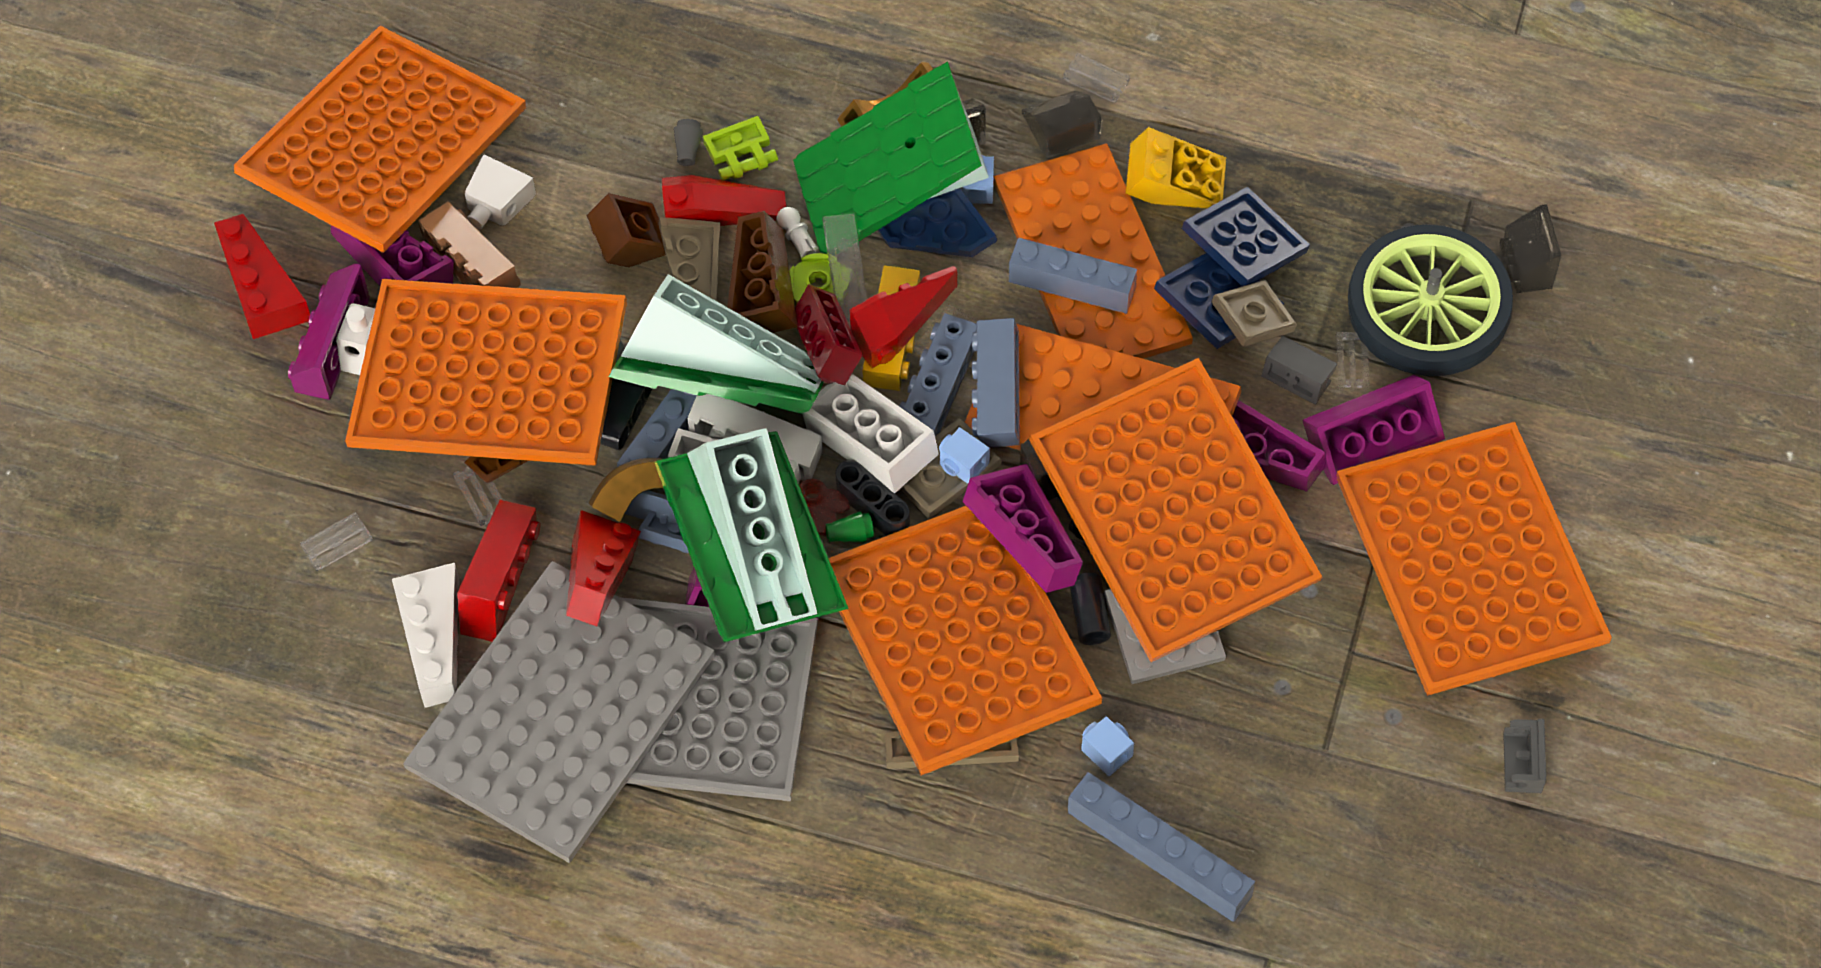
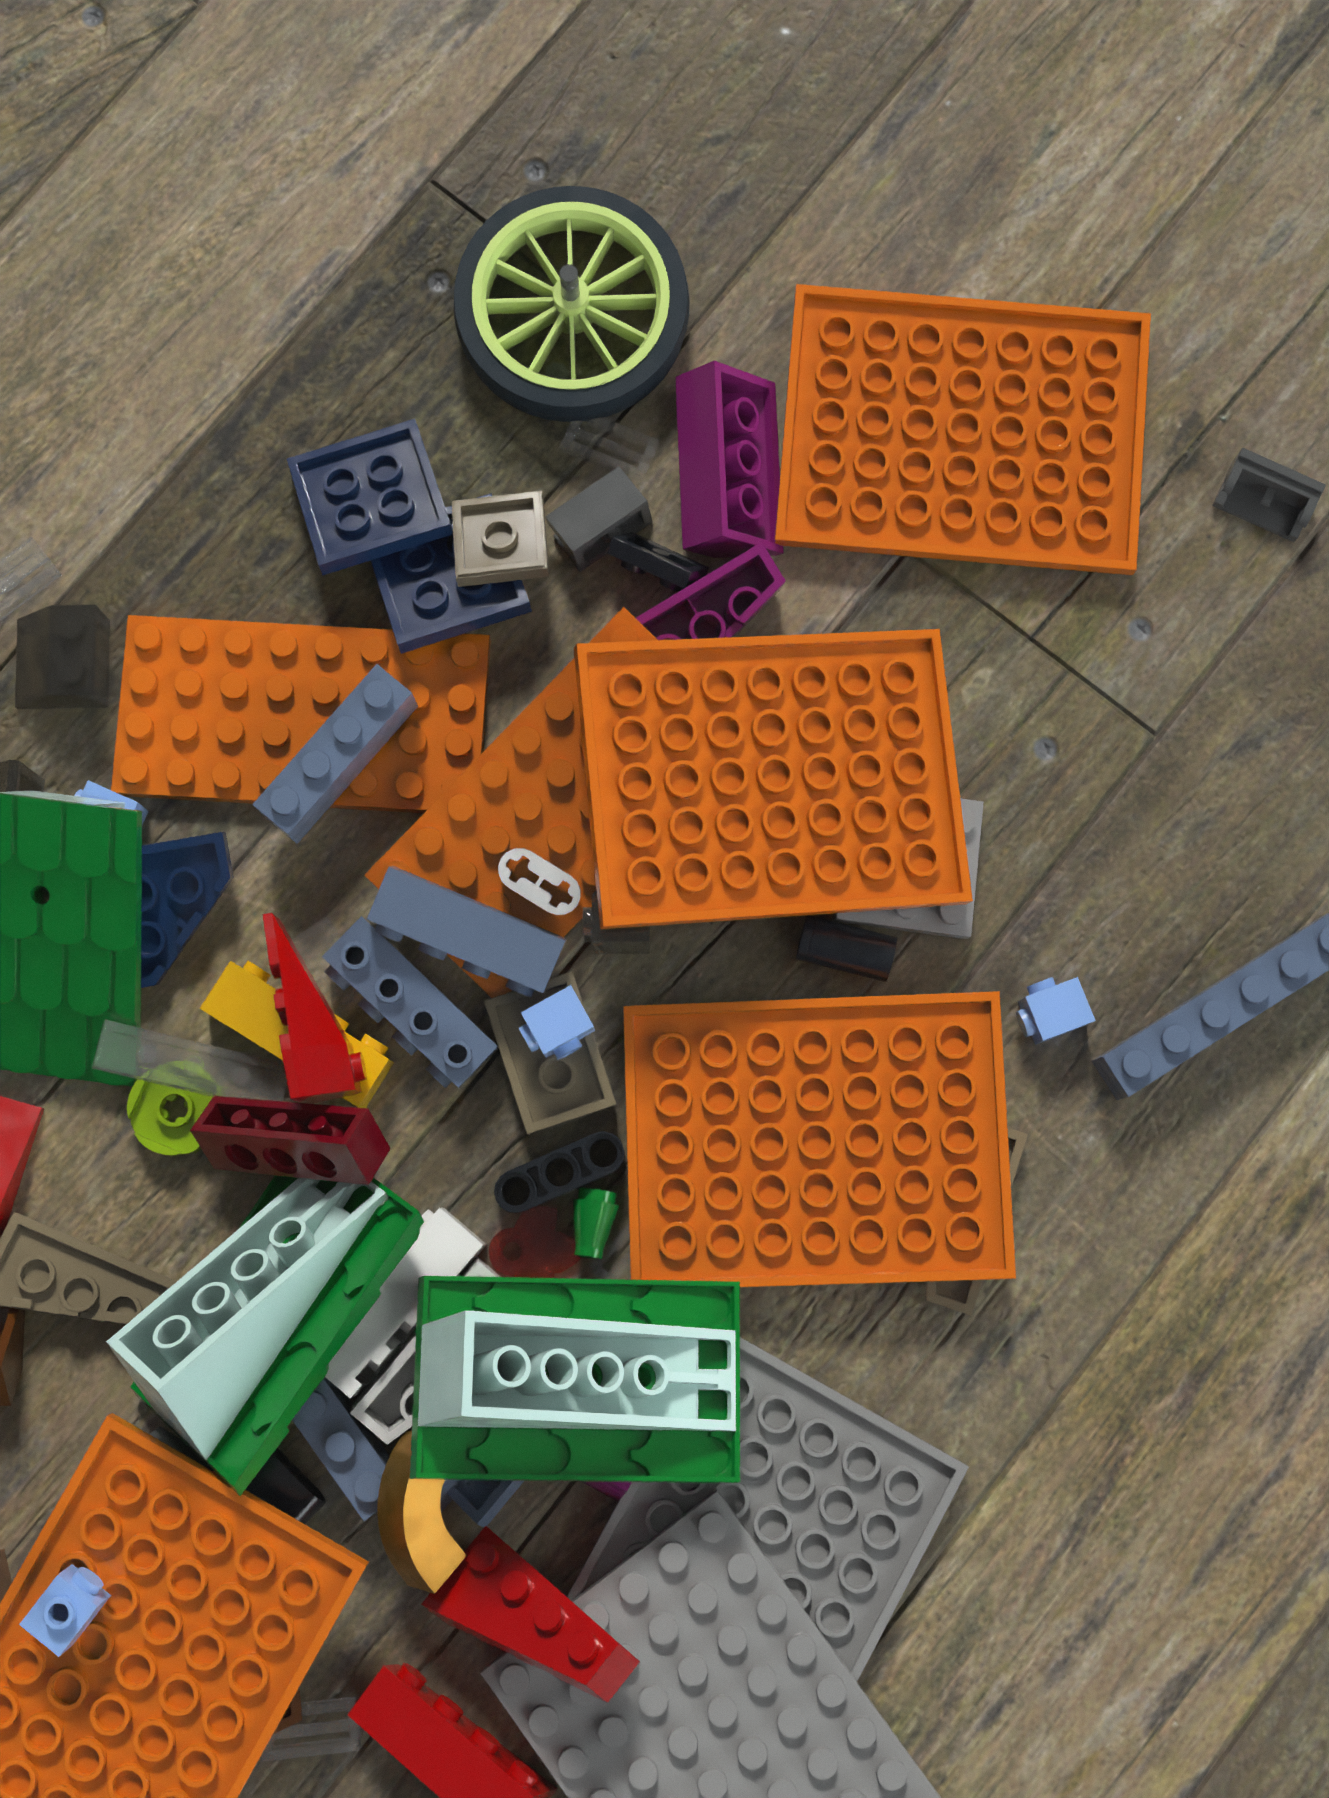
camera: 70 degrees left, 20 degrees up
(509, 313) = (66, 1608): none -> light blue brick
(761, 274) = (140, 1191): reddish brown wedge -> none
(789, 220) = (53, 1108): white pin -> none
(872, 431) = (471, 1133): white brick -> none
(1025, 524) = (706, 984): magenta wedge -> none
(1039, 407) = (533, 891): none -> white beam
(1174, 171) = (217, 545): yellow slope -> none
(1287, 404) = (644, 556): none -> black plate
(1531, 251) = (556, 138): clear smoke slope -> none

